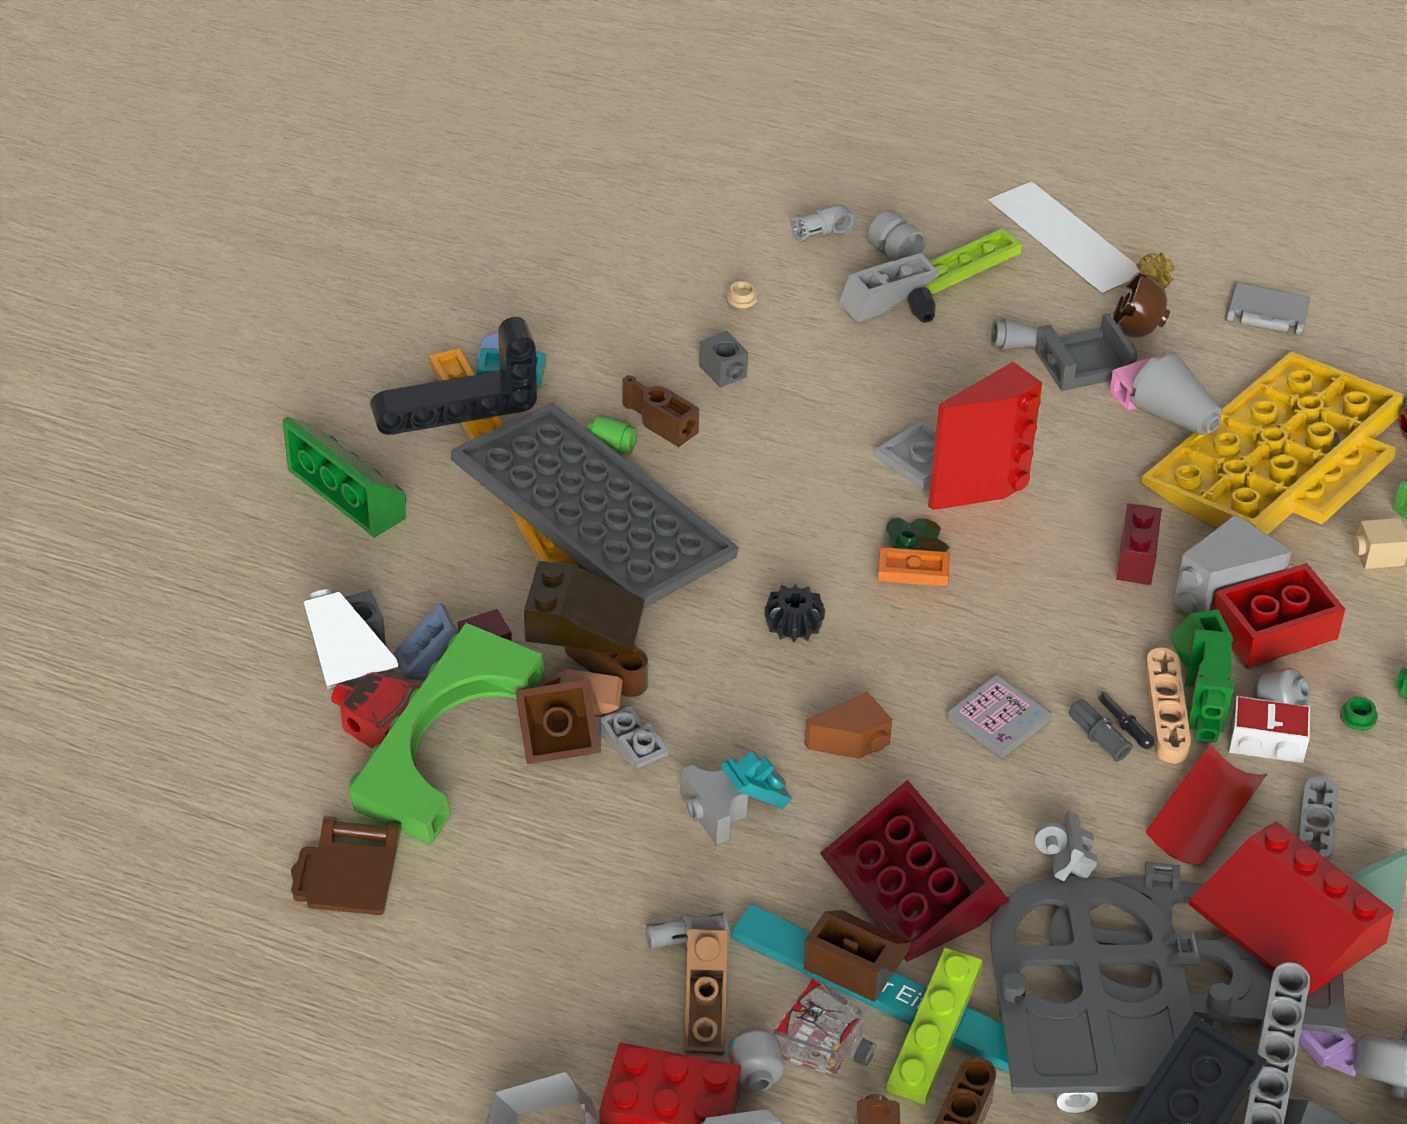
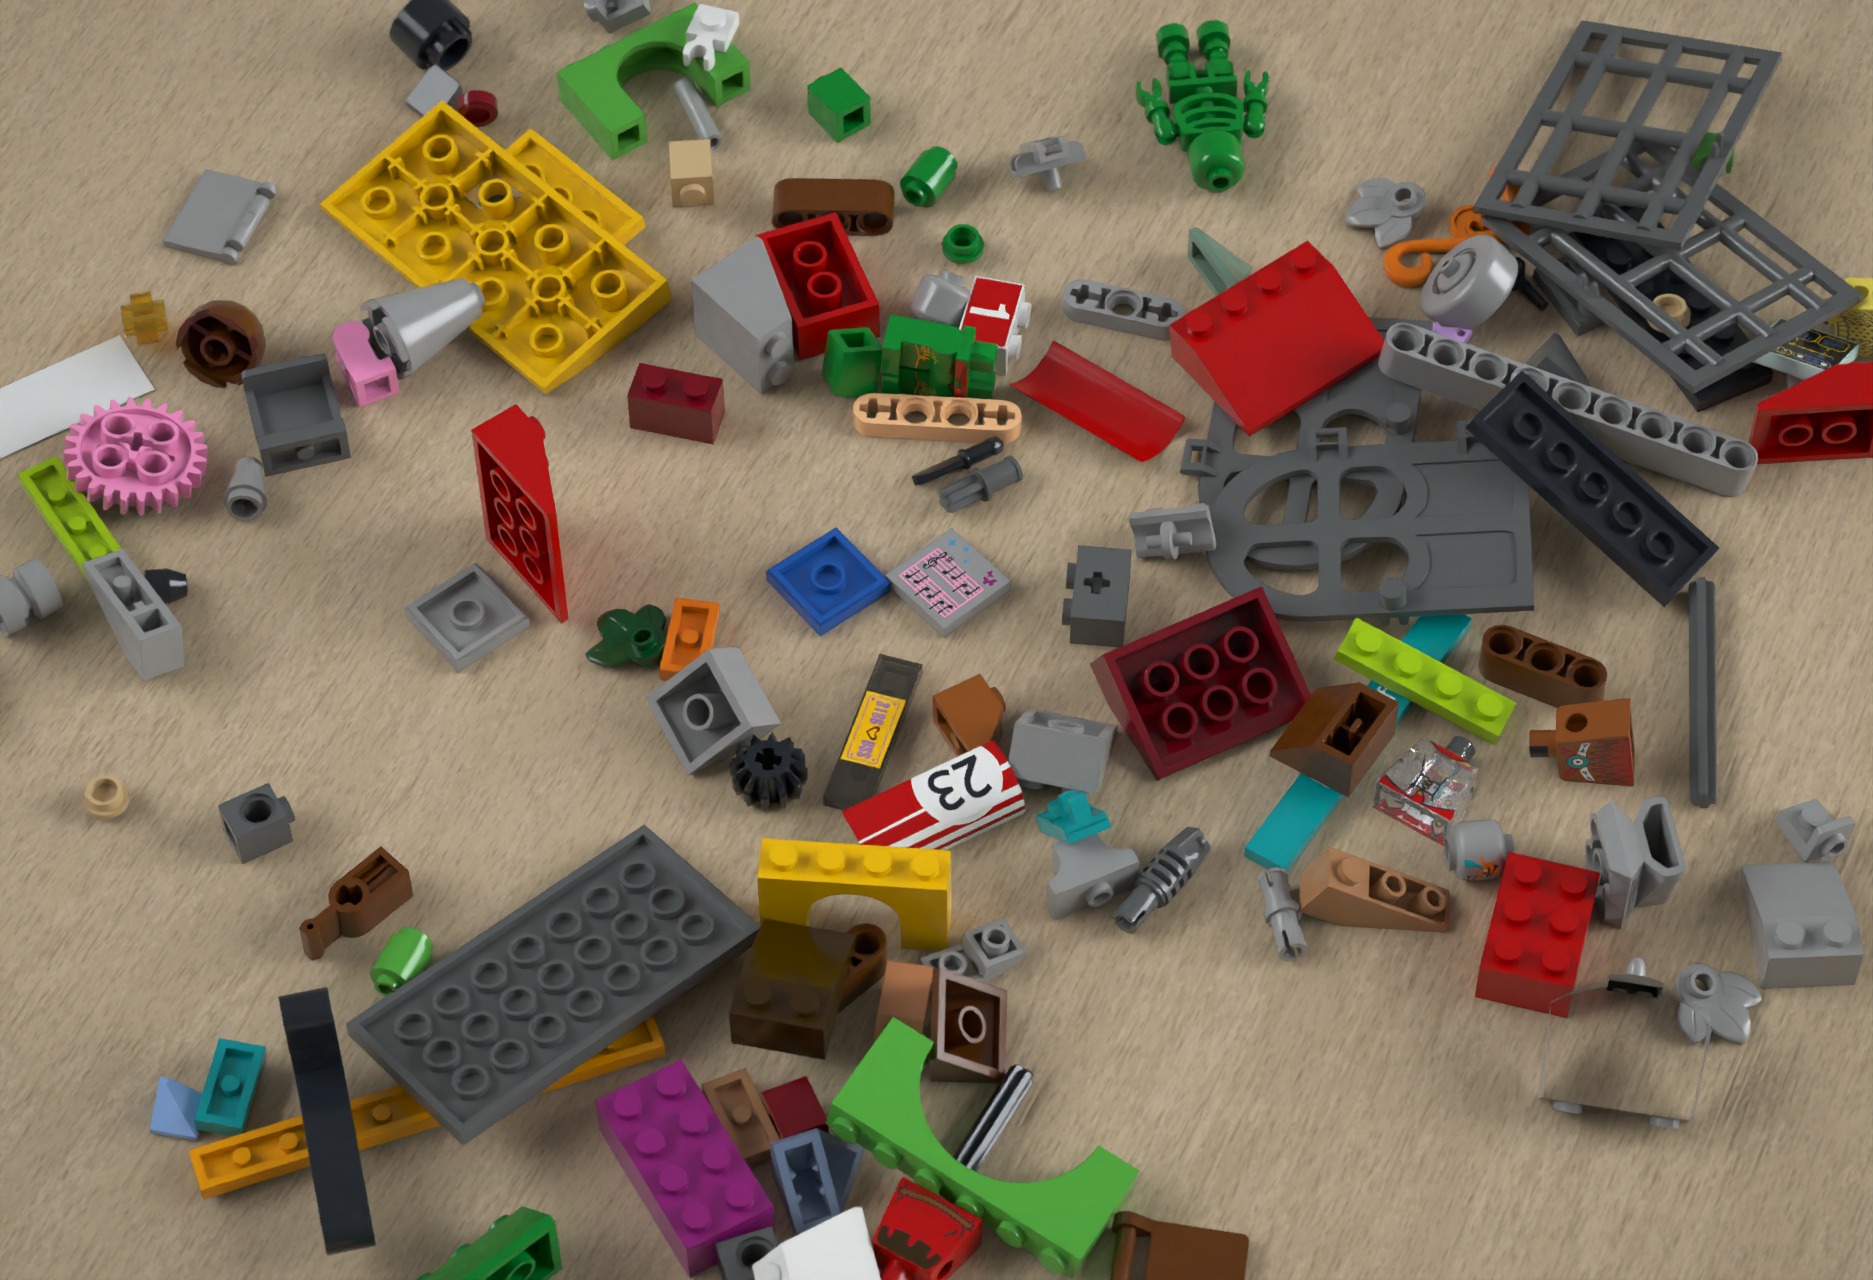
camera: 85 degrees left, 10 degrees up
(457, 570) = (683, 1164): none -> magenta brick
(485, 752) = (994, 1117): none -> axle
(505, 601) = (742, 1115): none -> medium nougat plate
(668, 648) = (906, 879): none -> yellow arch
(715, 850) = (1162, 878): none -> dark grey hinge
(762, 703) = (942, 804): none -> sticker
(834, 780) = (1060, 751): none -> light grey slope
(842, 676) = (873, 732): none -> clear smoke tile
(846, 575) = (712, 708): none -> light grey slope
(989, 646) = (828, 581): none -> blue tile
(994, 805) = (1099, 596): none -> dark grey brick
(1007, 279) = (135, 456): none -> bright pink gear
(1373, 630) = (861, 204): none -> reddish brown beam

